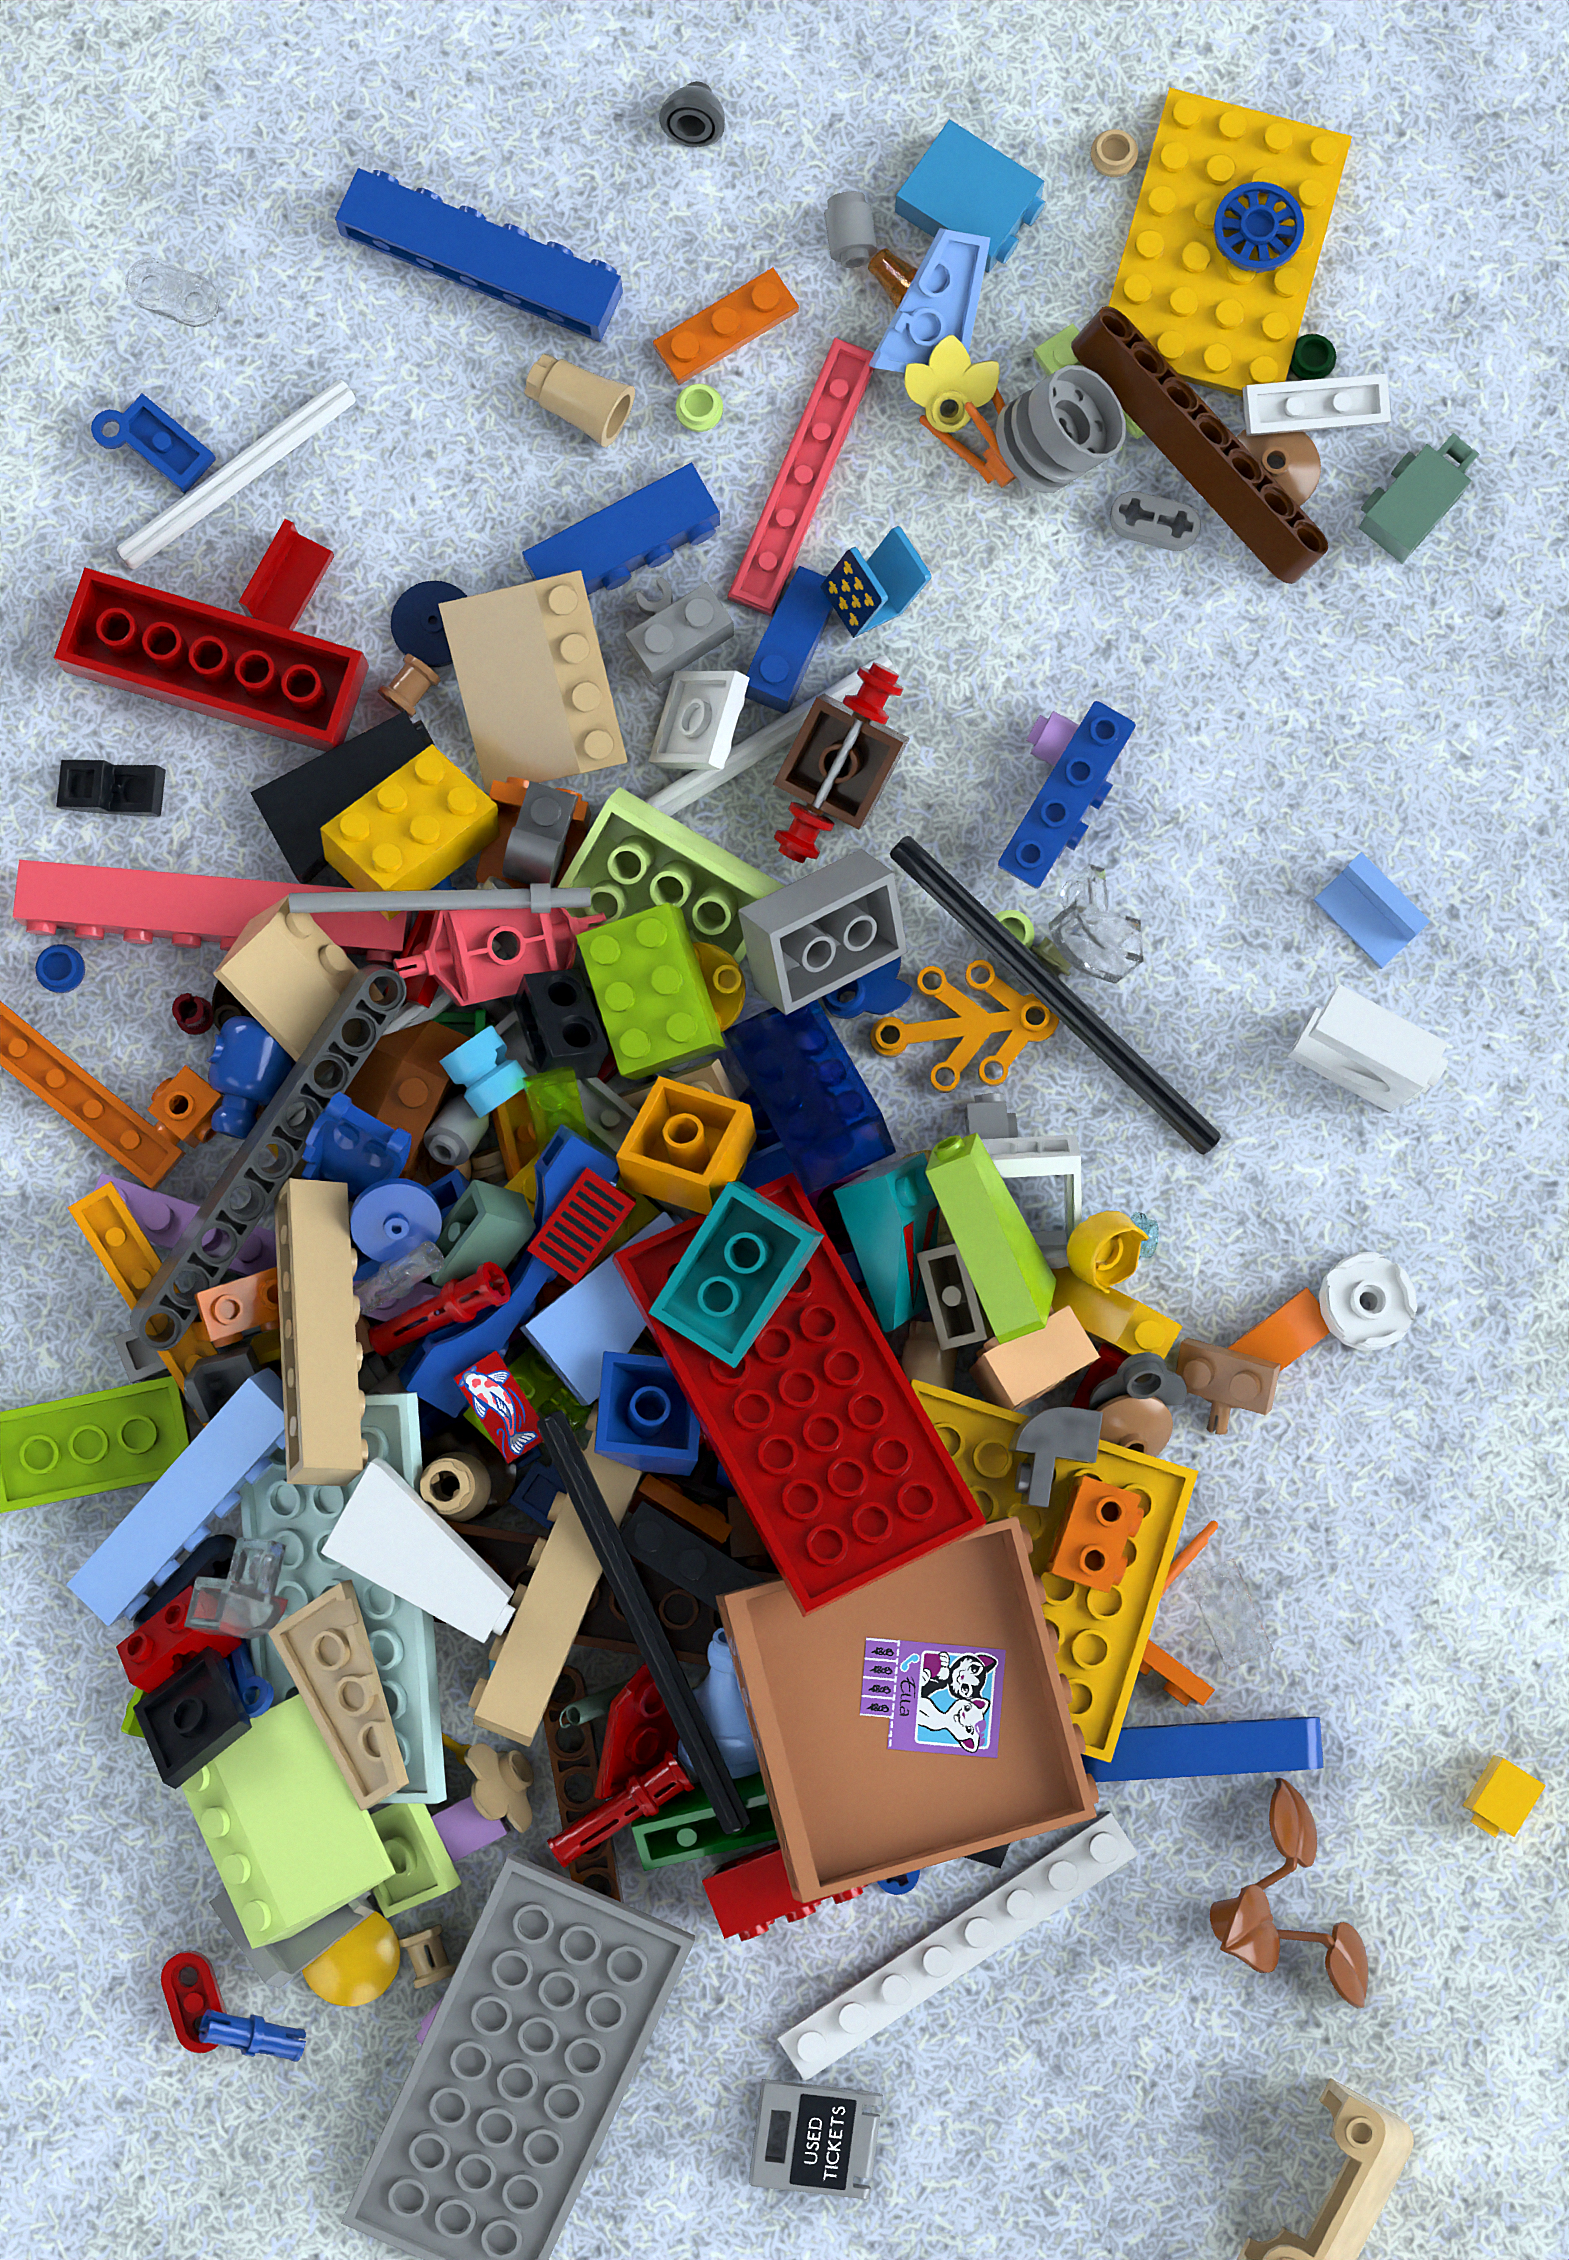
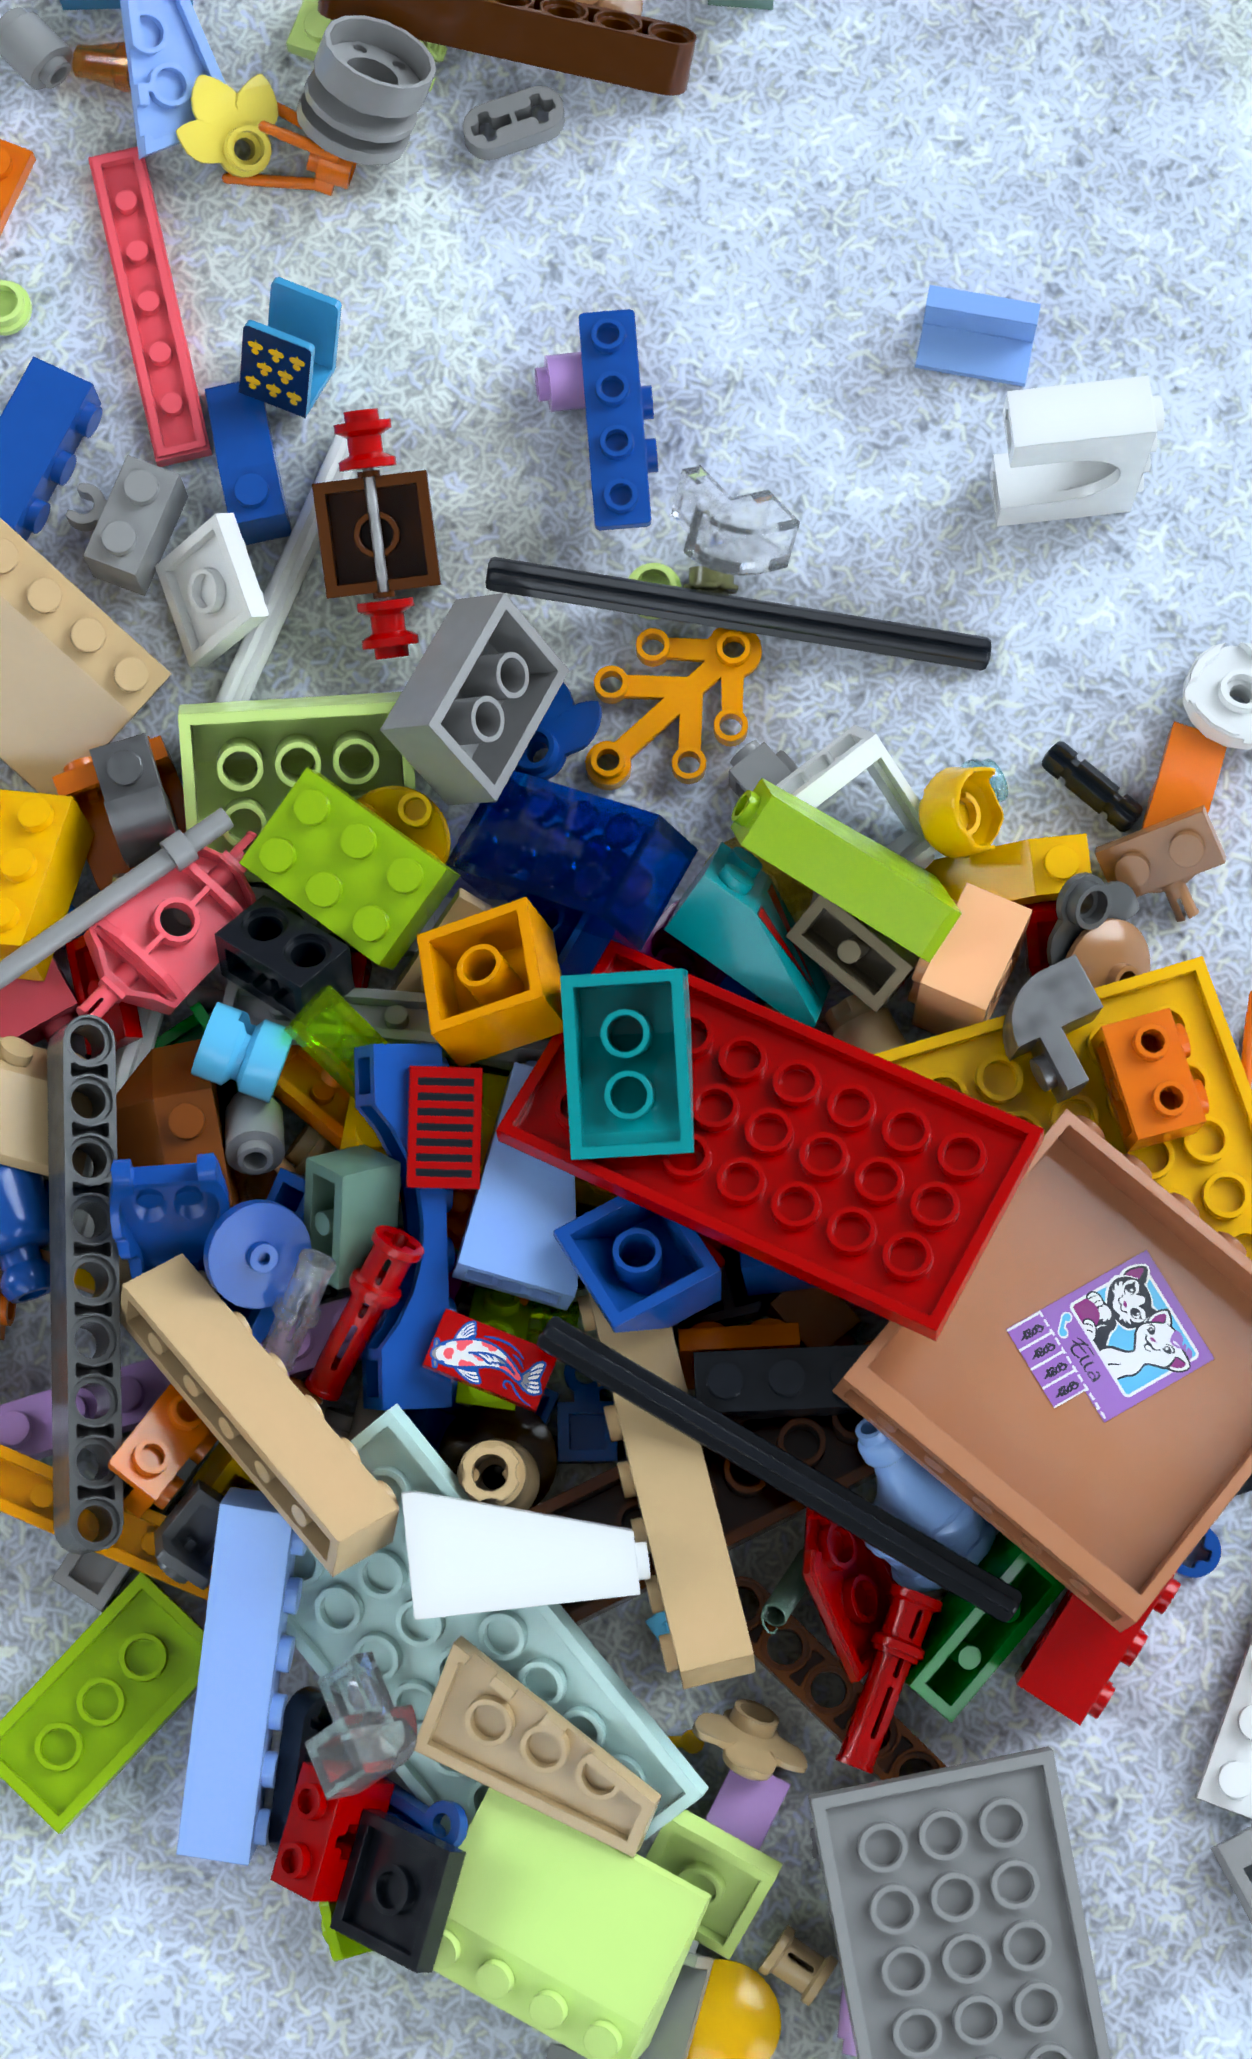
camera: 30 degrees left, 5 degrees down
(1216, 1291) = (1092, 786): none -> black axle

